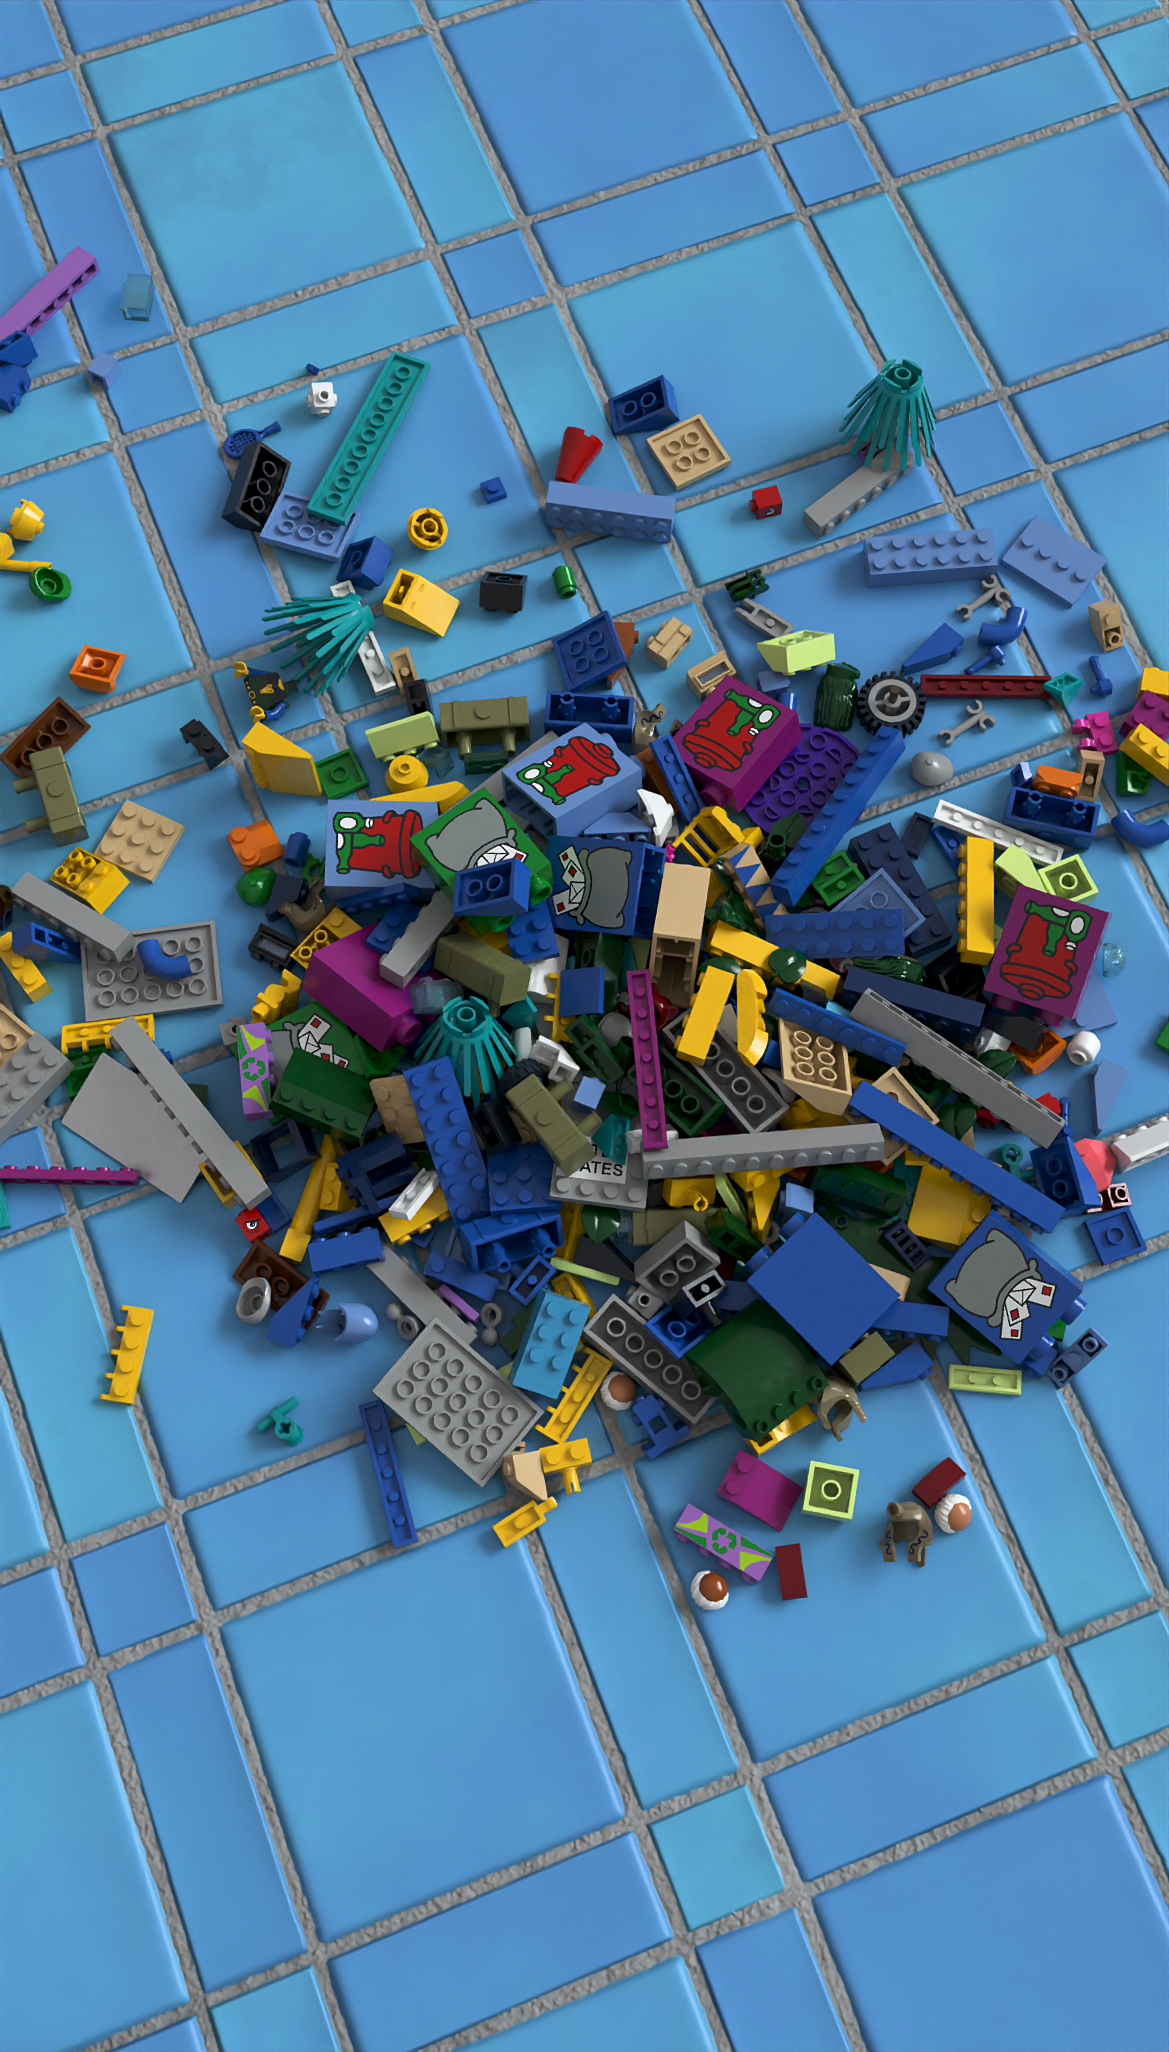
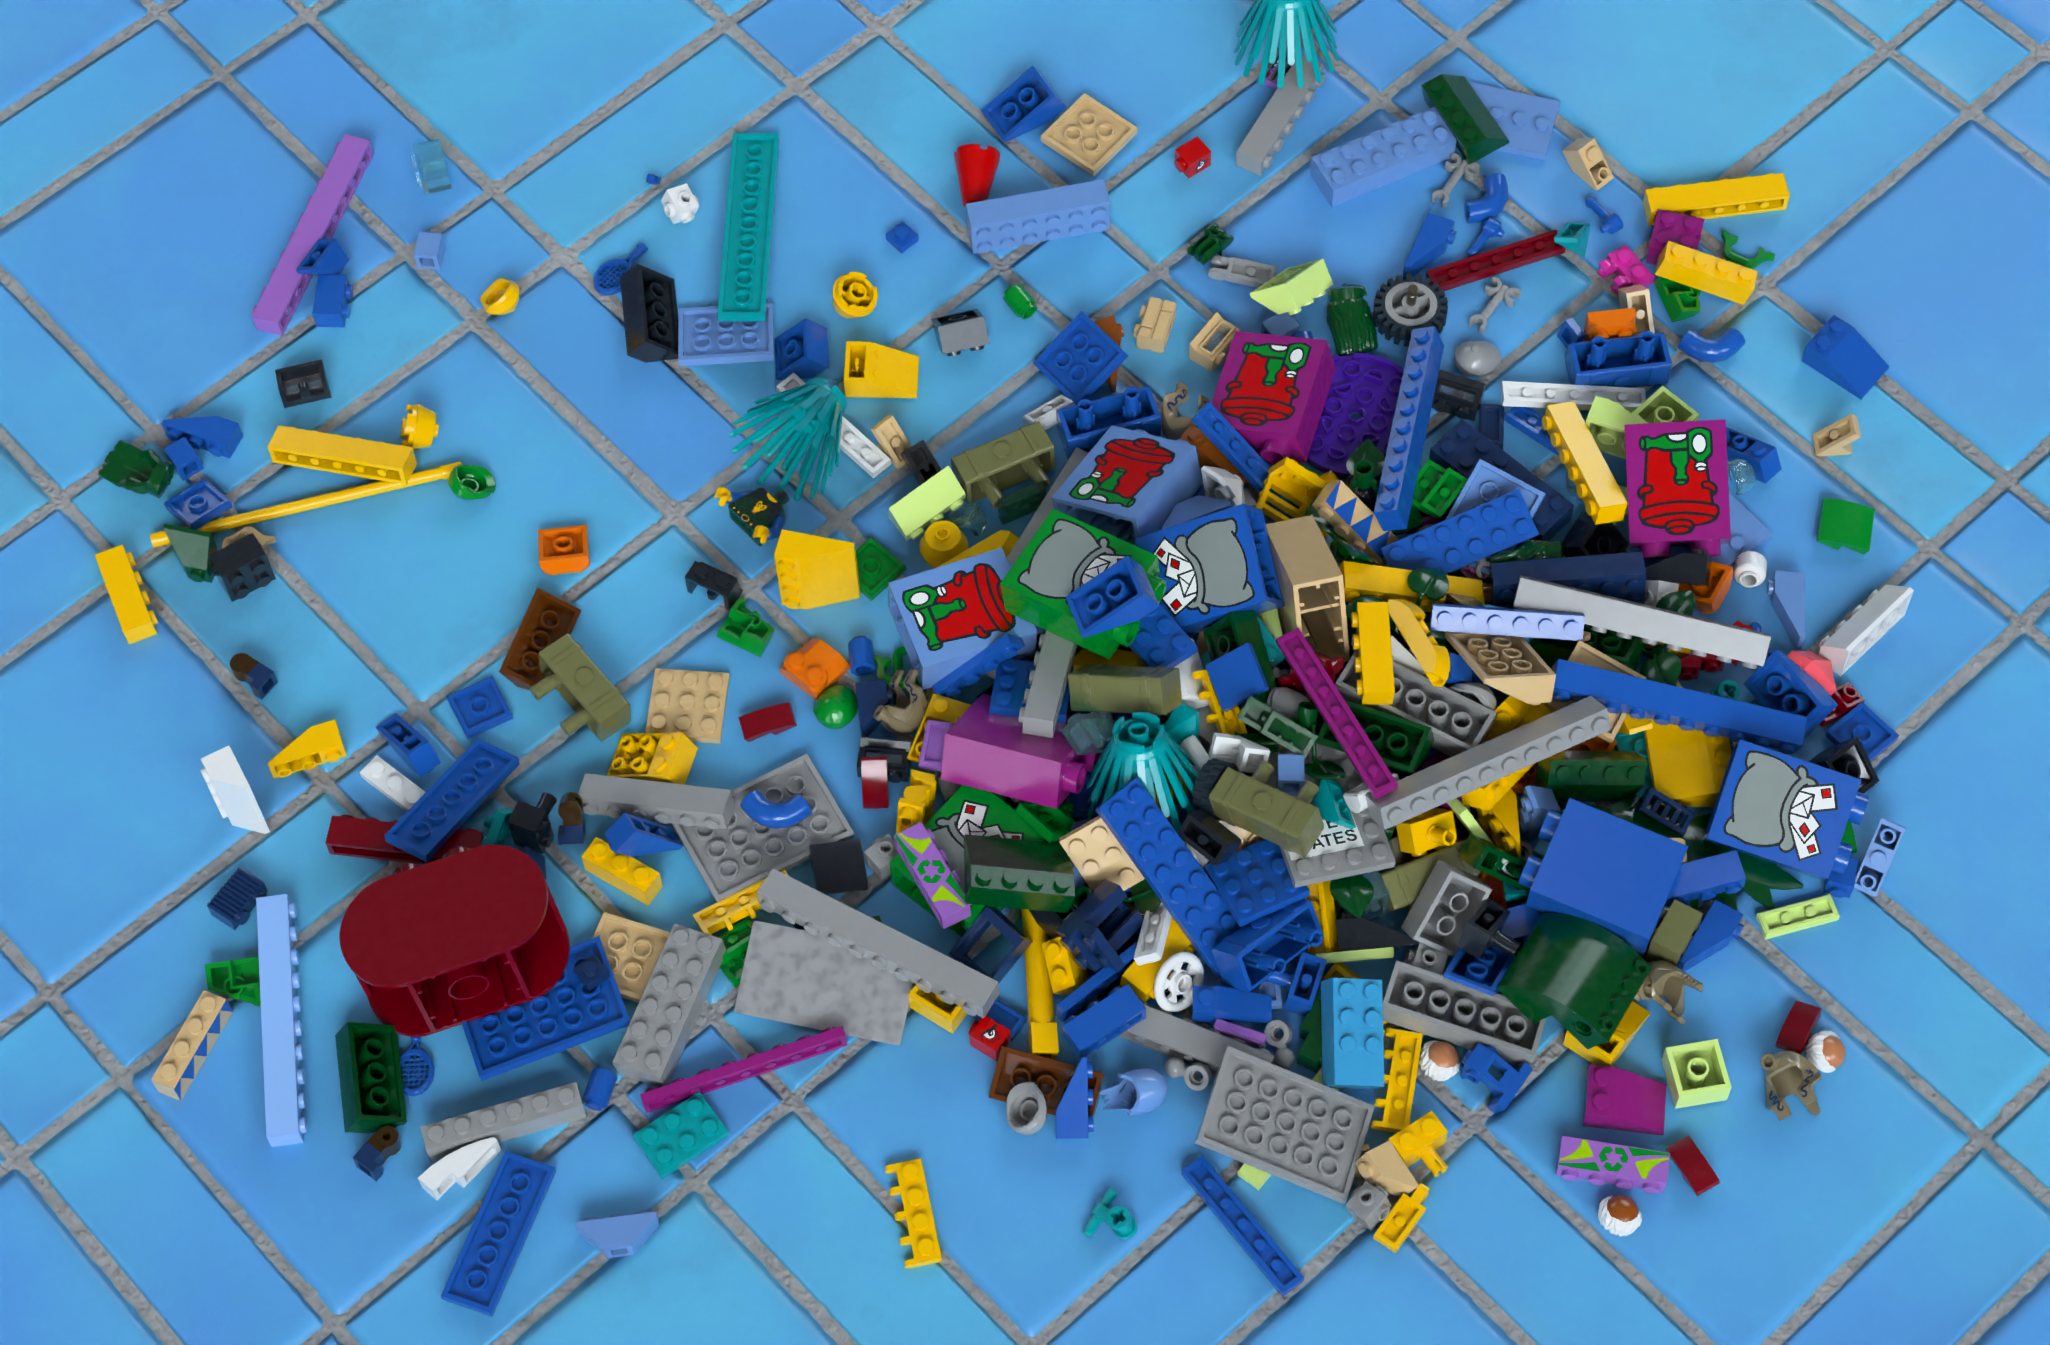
camera: 20 degrees left, 10 degrees down
(143, 431) = (501, 297): none -> yellow hat
(195, 878) = (767, 720): none -> dark red slope
(196, 1029) = (838, 867): none -> black slope
(214, 791) = (746, 629): none -> green slope
(255, 966) = (874, 782): none -> dark red slope
(316, 943) = (933, 745): none -> medium lavender tile
(425, 1240) = (1178, 982): none -> white plate
(499, 1499) = (1369, 1205): none -> light grey brick
(537, 692) = (1047, 413): none -> white brick
(897, 797) = (1458, 395): none -> black window
(1015, 545) = (1465, 116): none -> dark green slope
(1085, 1260) = (1851, 760): none -> black slope
(1135, 946) = (1759, 454): none -> blue slope

